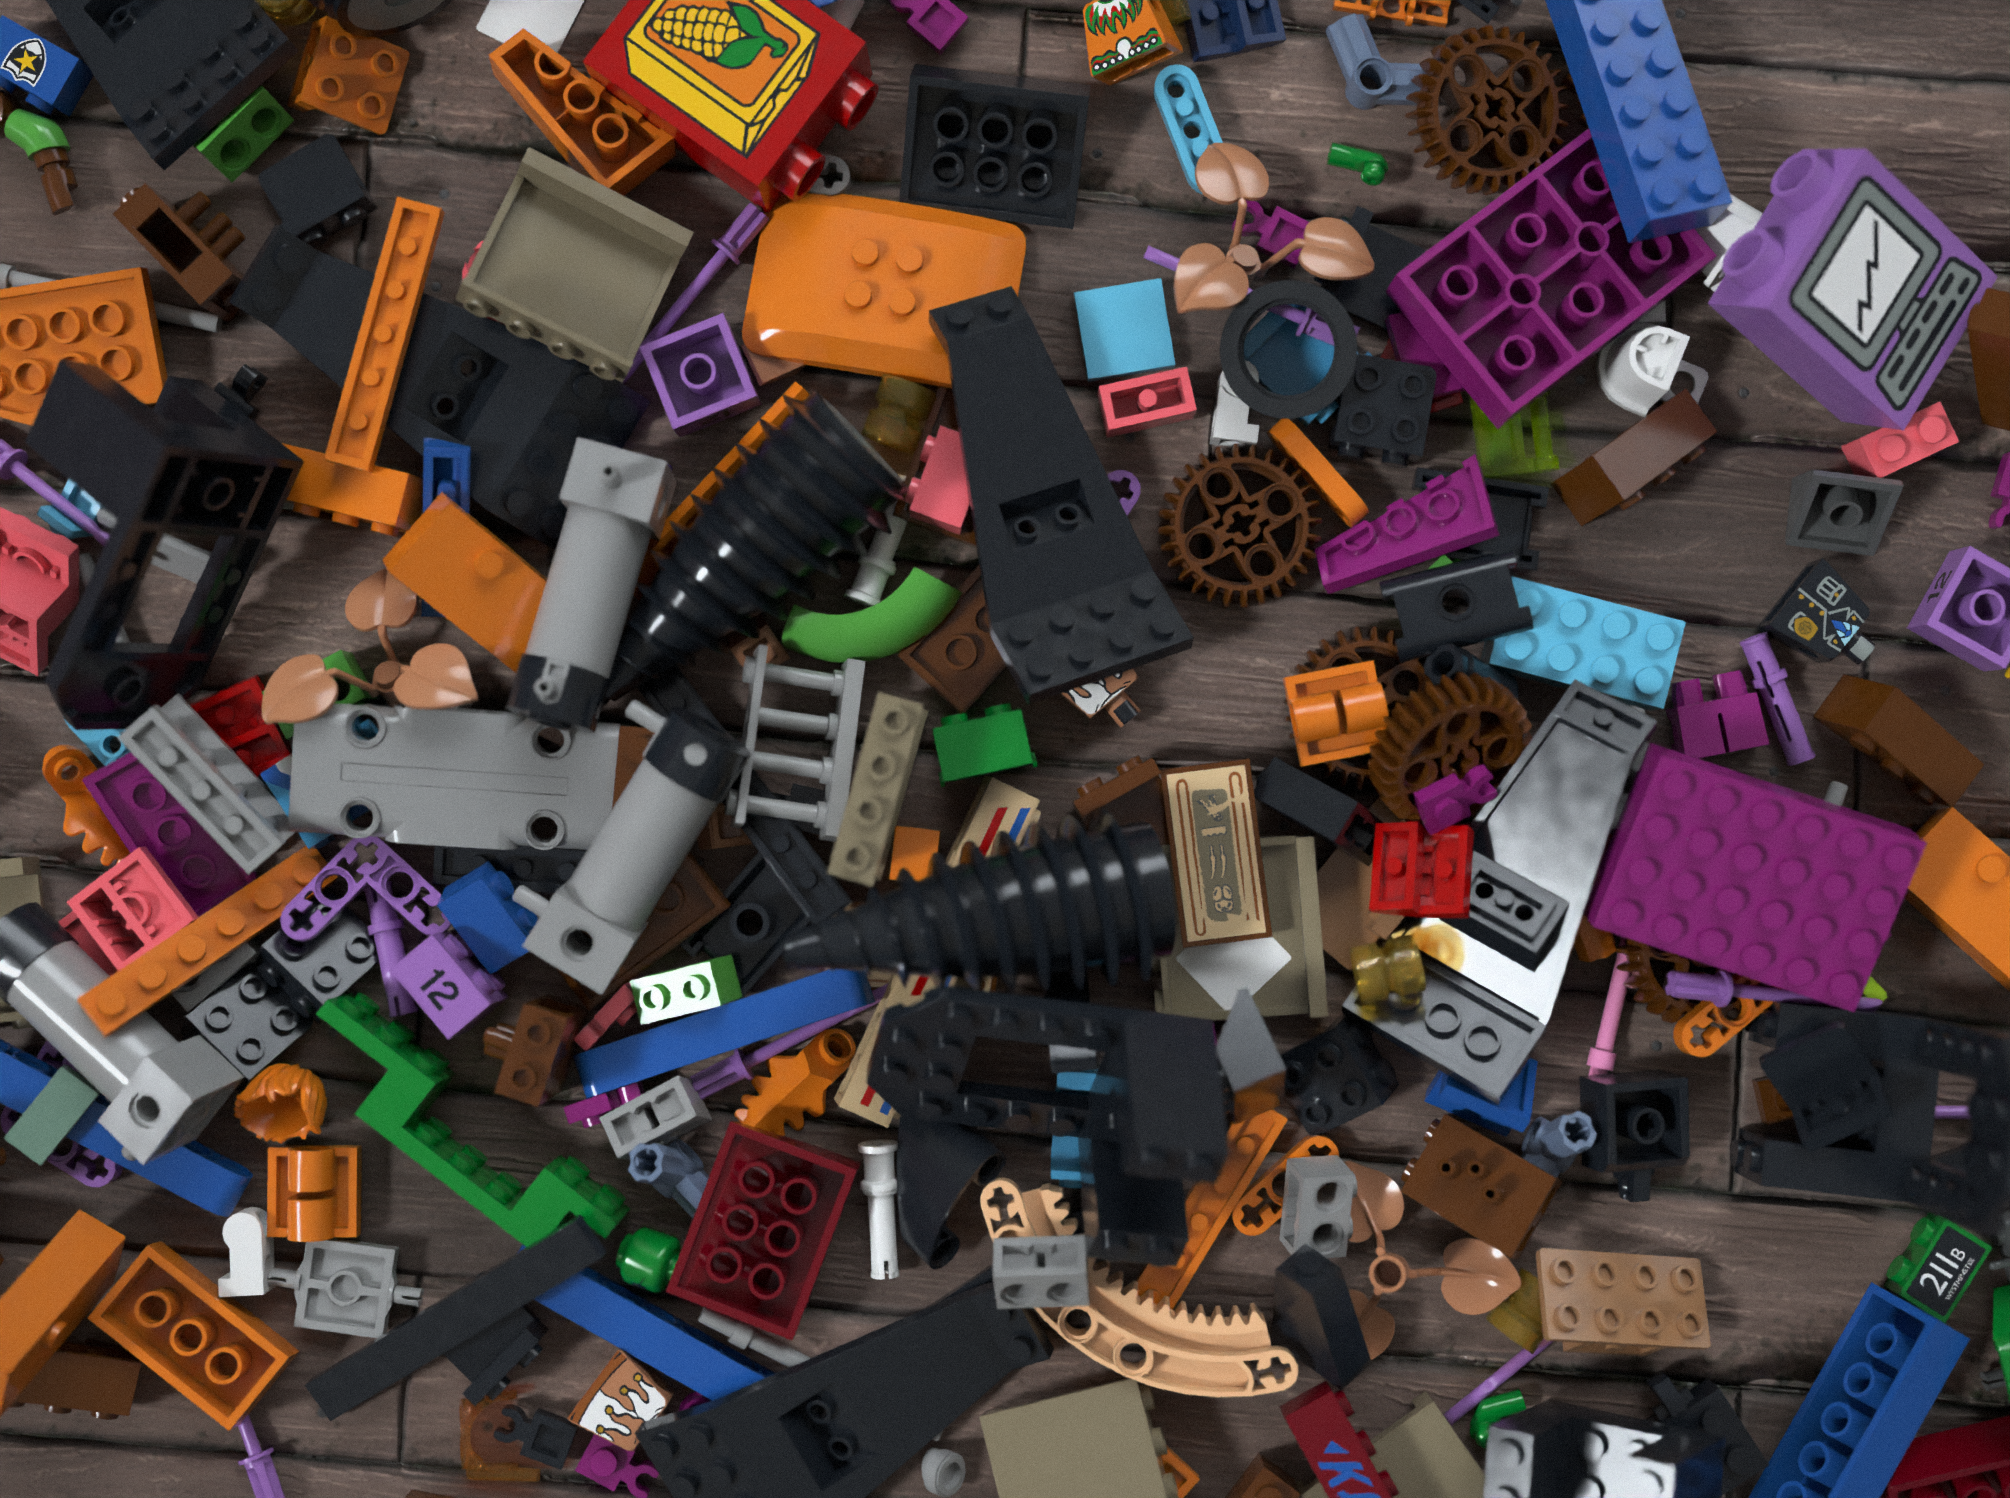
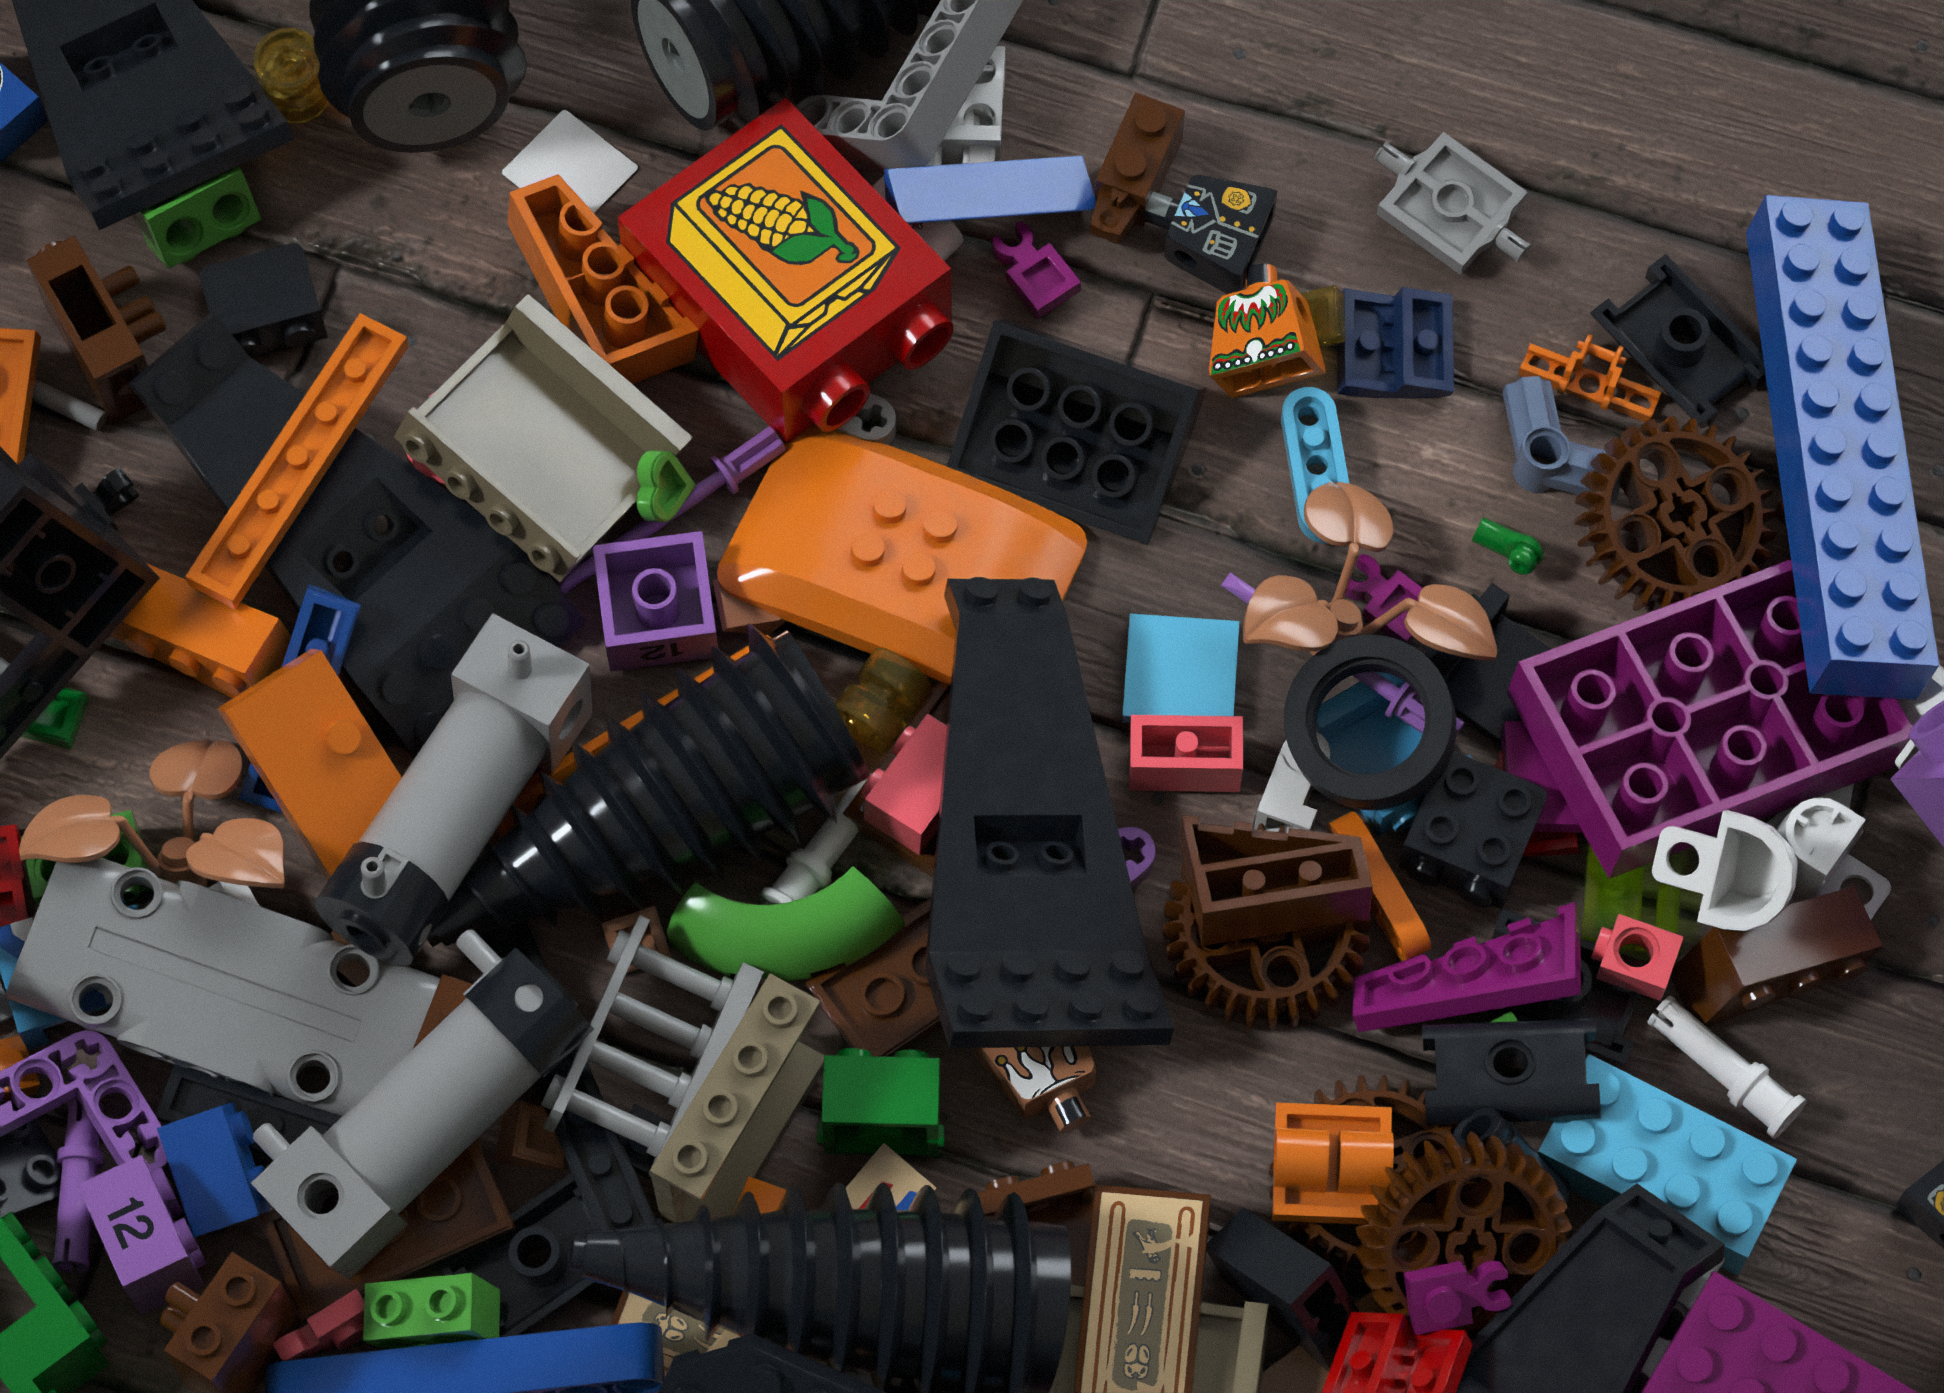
camera: 10 degrees right, 20 degrees down
(264, 581) = (60, 719): none -> green tile
(349, 76) = (340, 186): orange bracket -> none
(681, 278) = (663, 486): none -> bright green tile
(1240, 500) = (1270, 881): none -> reddish brown wedge
(1551, 487) = (1659, 944): none -> coral brick
(1610, 414) = (1742, 872): none -> white container
(1630, 562) = (1746, 1082): none -> white pin
(1716, 725) = (1827, 1299): magenta hips -> none
(1777, 698) = (1898, 1273): medium lavender pin -> none

